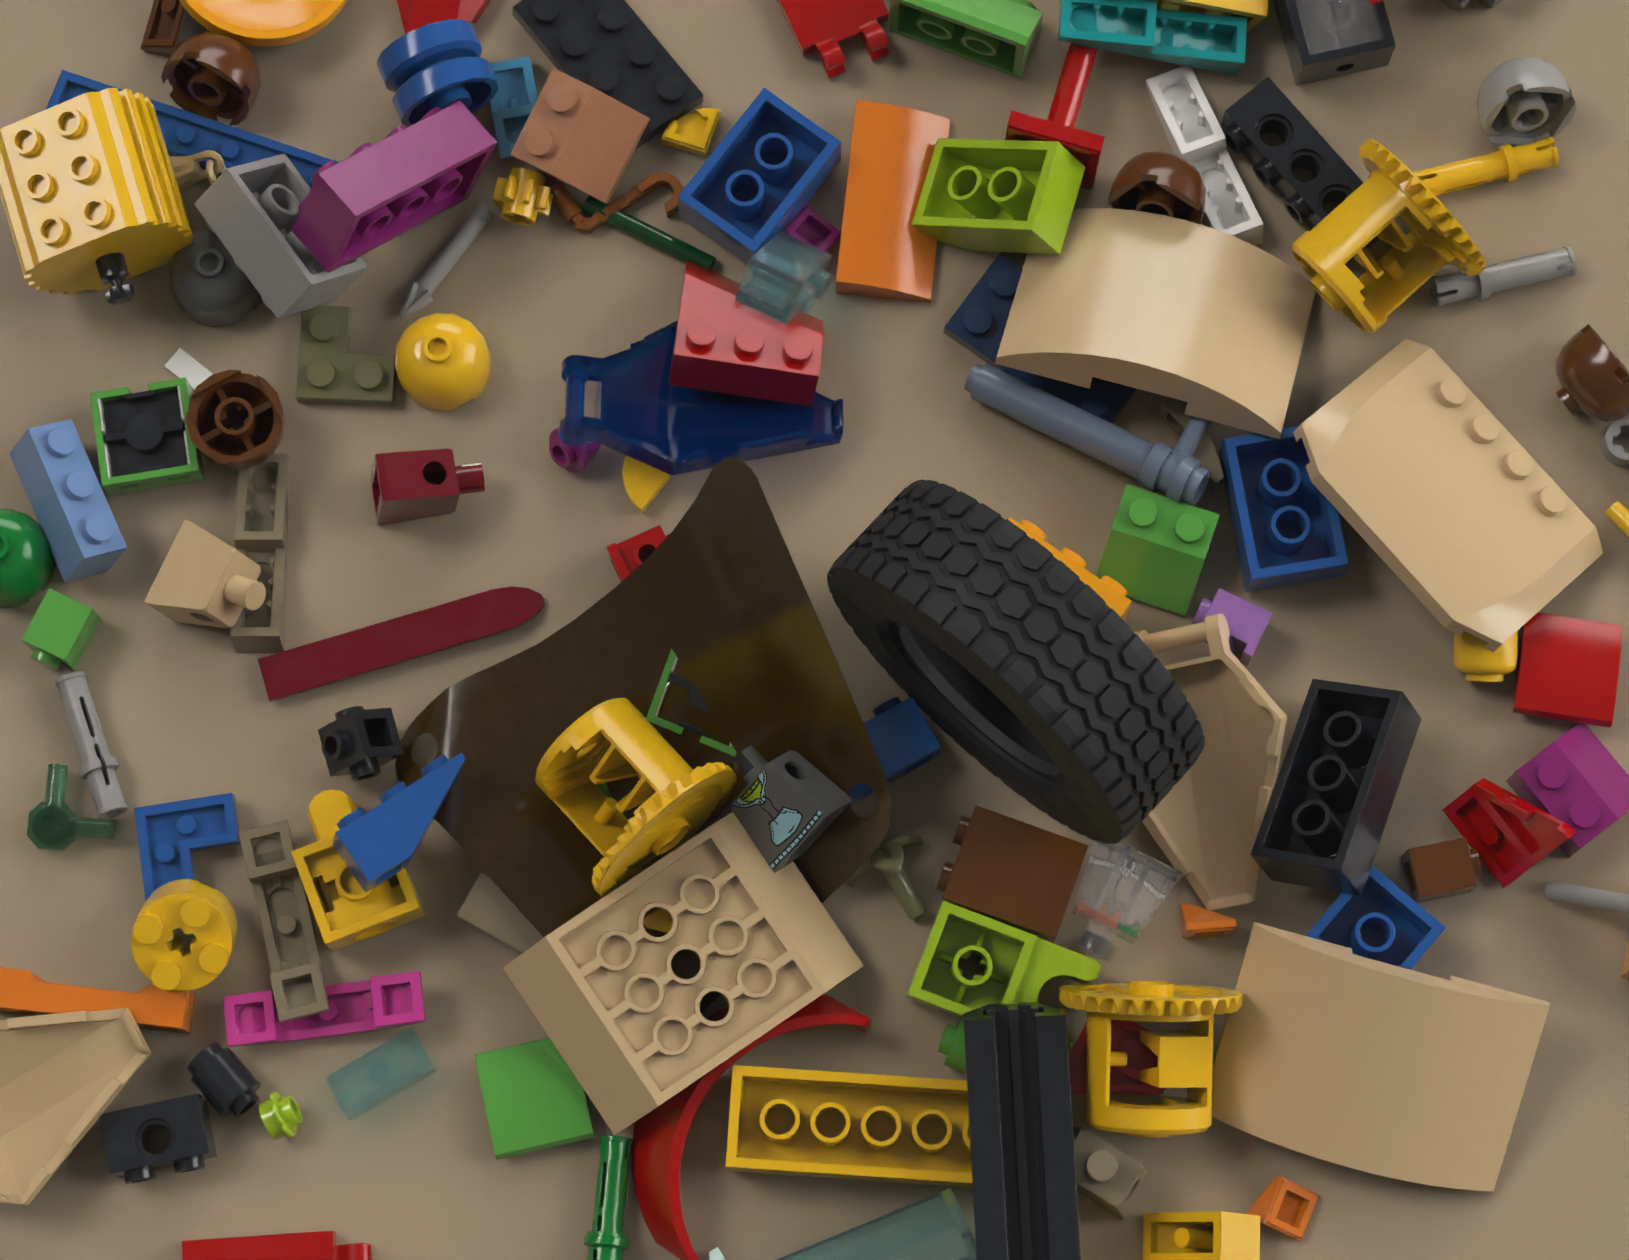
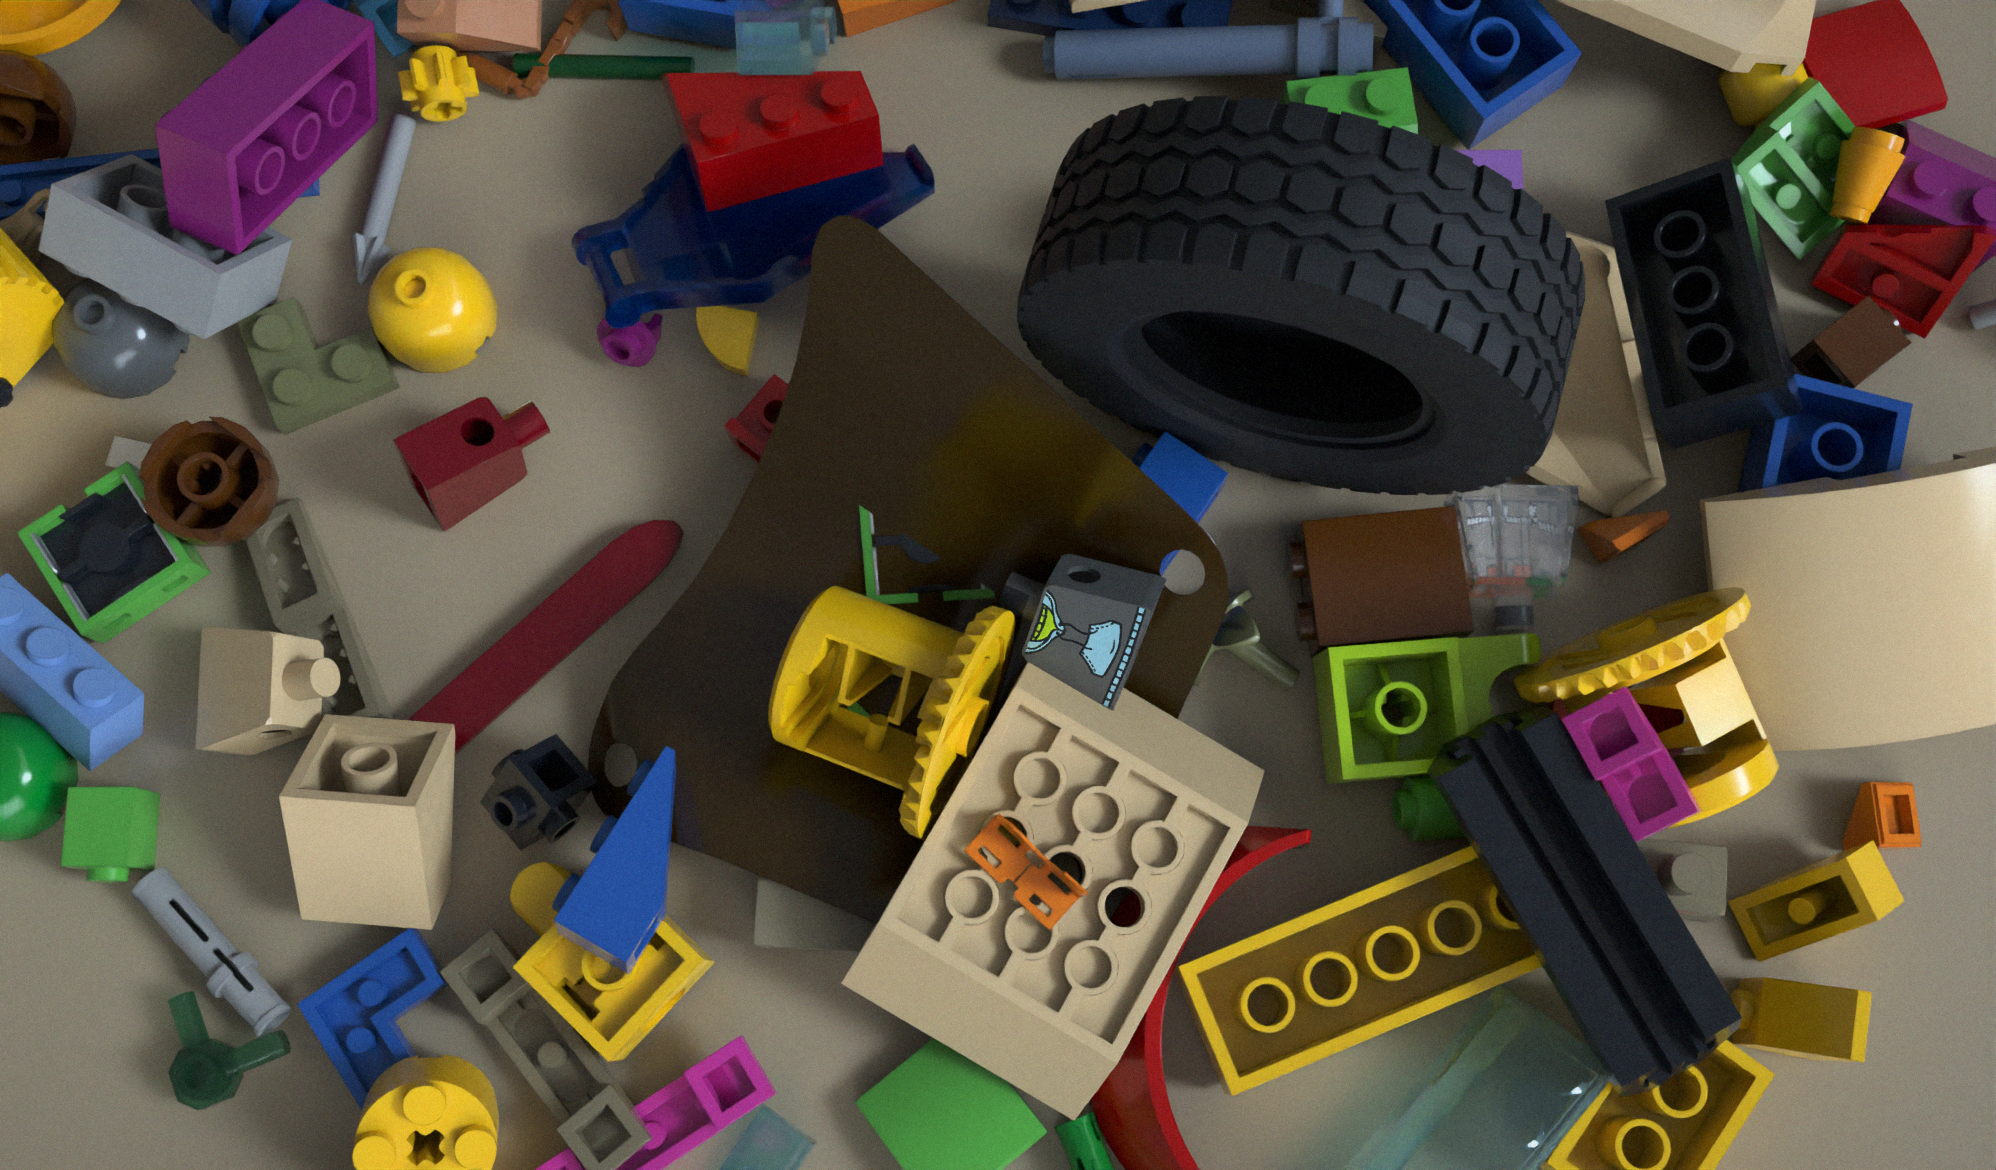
camera: 25 degrees left, 0 degrees up
(241, 709) = (372, 821): none -> tan slope
(660, 959) = (1033, 879): none -> orange piece
(1099, 1073) = (1631, 764): none -> dark pink slope
(1476, 723) = (1794, 166): none -> bright green slope
(1509, 748) = (1864, 173): none -> light orange cone

